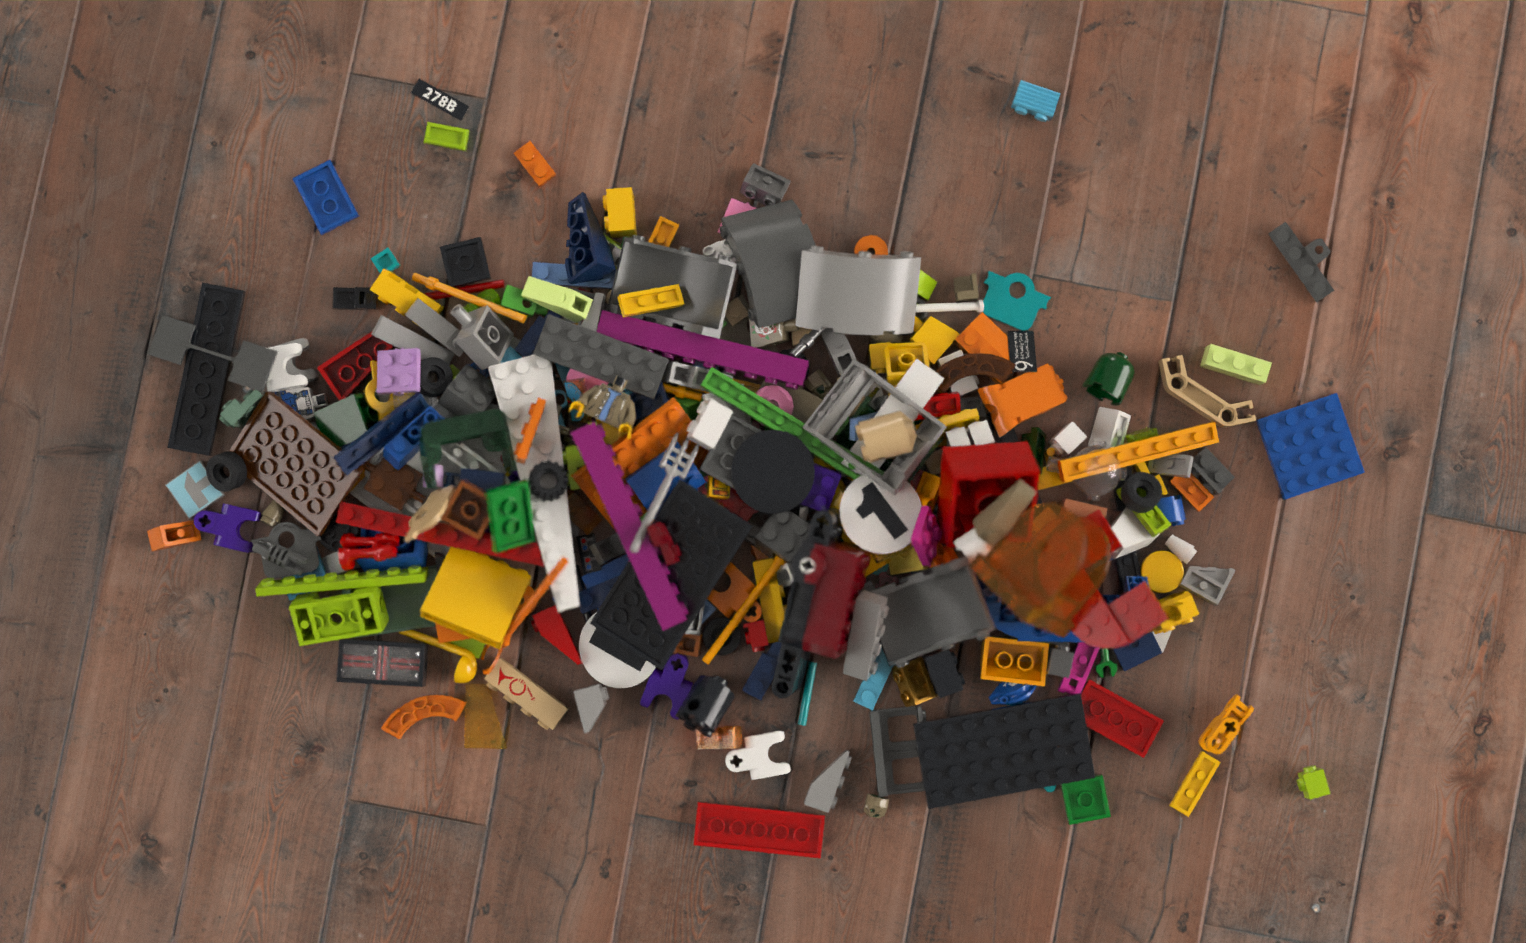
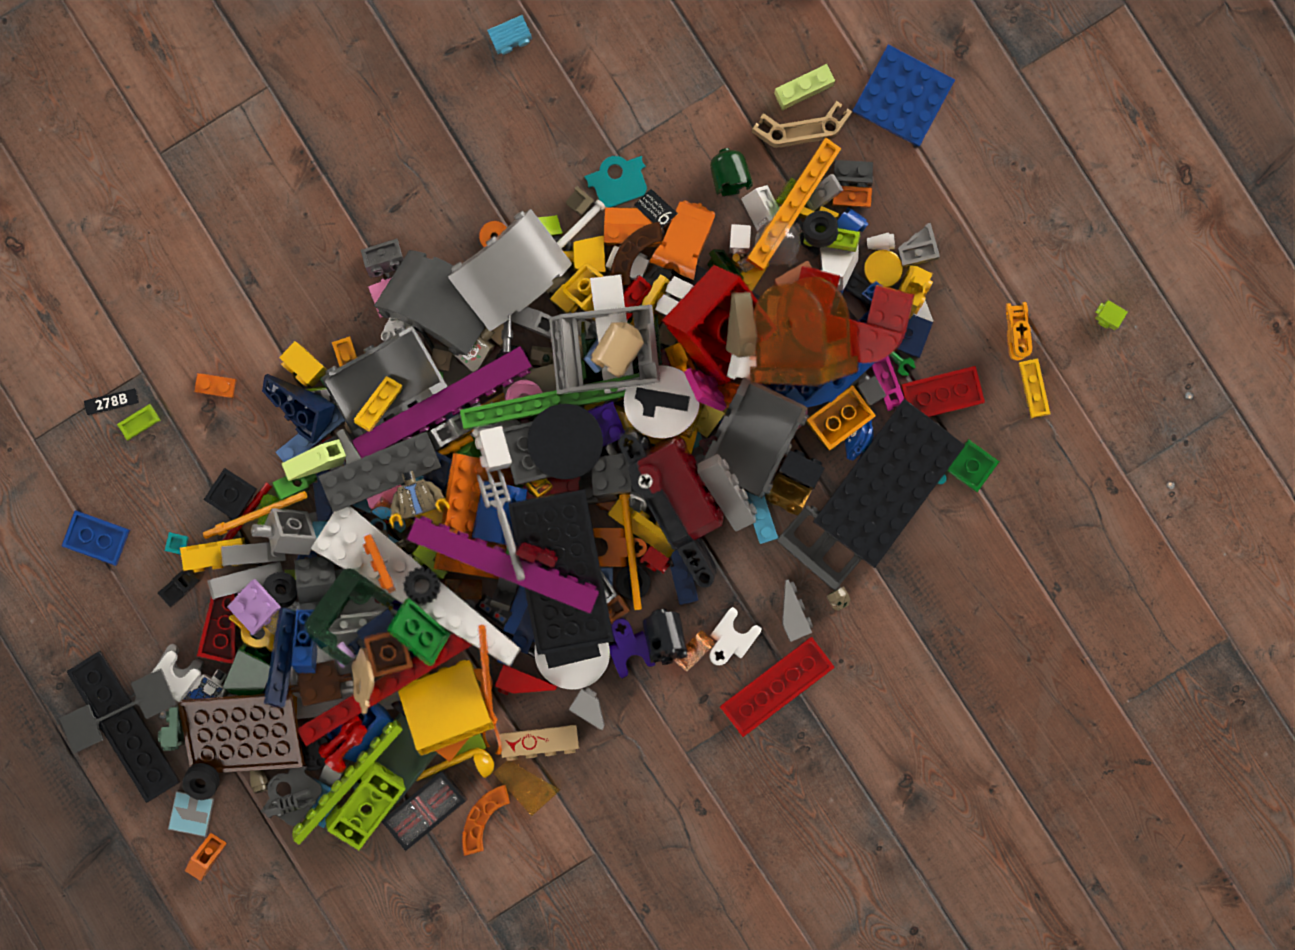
camera: 35 degrees left, 0 degrees up
(227, 526) = (235, 817): dark purple piece -> none
(807, 693) = (724, 566): teal bar -> none

